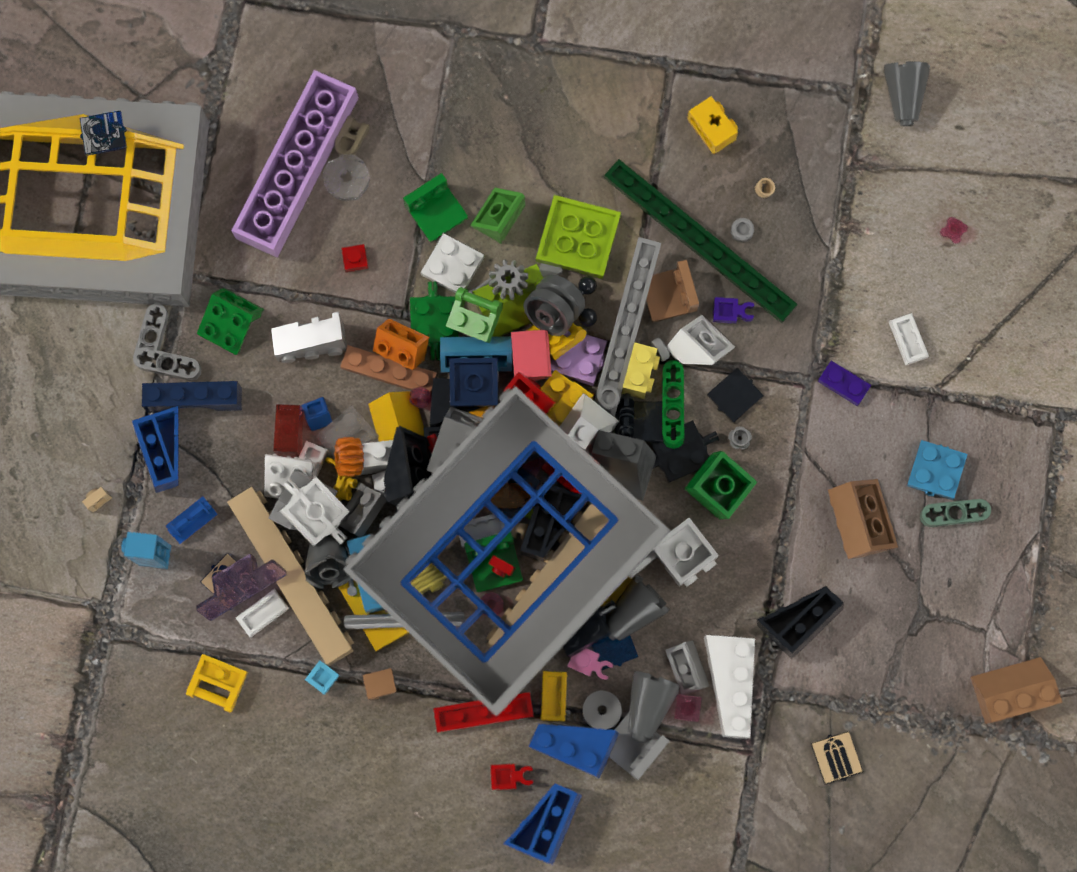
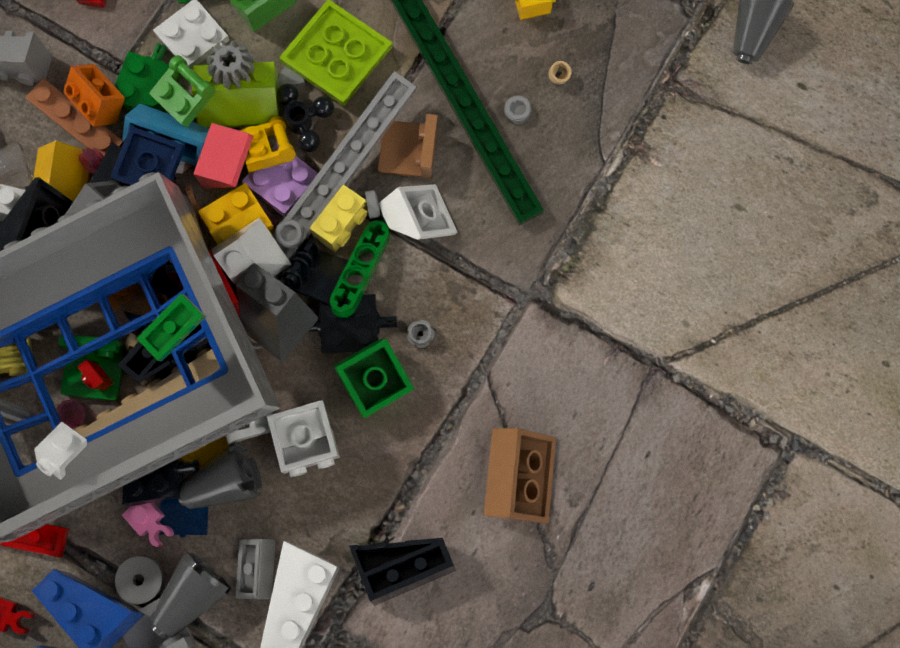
camera: 20 degrees right, 0 degrees up
(483, 527) = (92, 324): white plate -> none
(529, 622) = (59, 450): none -> white bracket
(532, 392) = (201, 198): red slope -> none
(553, 696) = (92, 543): yellow plate -> none
(554, 305) = (268, 109): dark grey wheel -> none
(576, 499) = (171, 327): none -> green plate
(687, 708) = (233, 615): clear pink plate -> none
(727, 310) = (464, 189): dark purple plate -> none
(735, 395) = (435, 285): black piece -> none
(844, 383) = (561, 316): dark purple plate -> none
(908, 339) = (653, 294): white plate -> none
(937, 470) = (627, 452): dark azure plate -> none
(953, 223) = (755, 186): clear pink plate -> none
(973, 517) = (651, 508): sand green beam -> none

